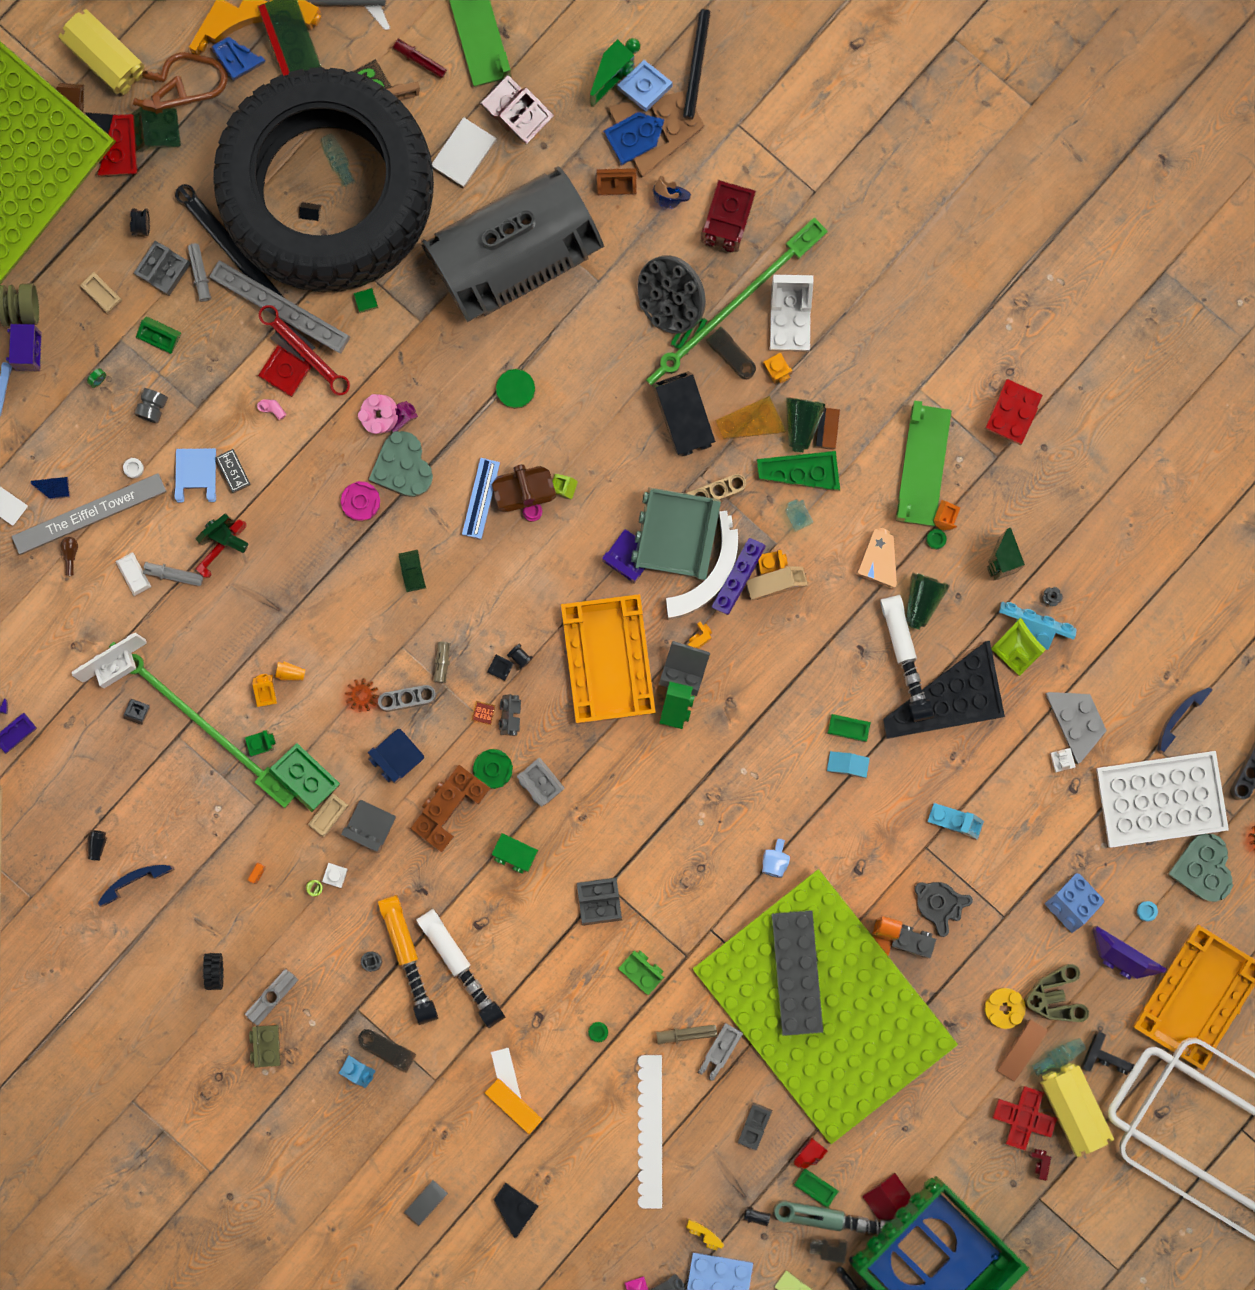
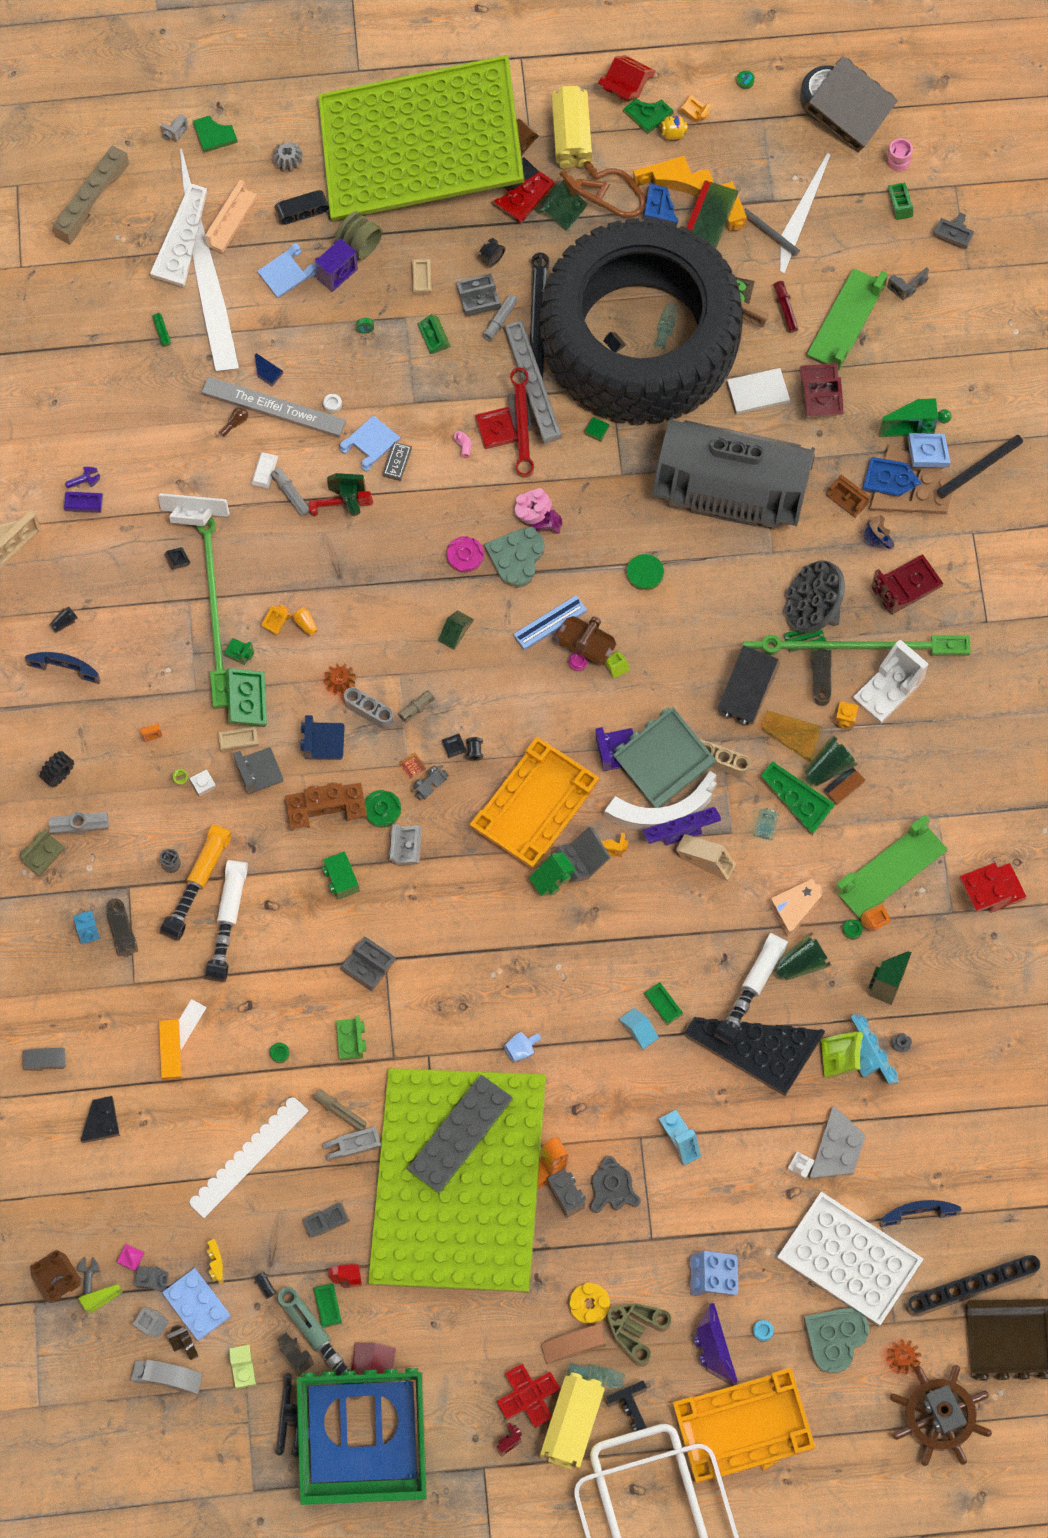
camera: 45 degrees right, 15 degrees down
(151, 404) = (382, 372): dark grey wheel -> none
(772, 562) = (716, 837): light orange bracket -> none

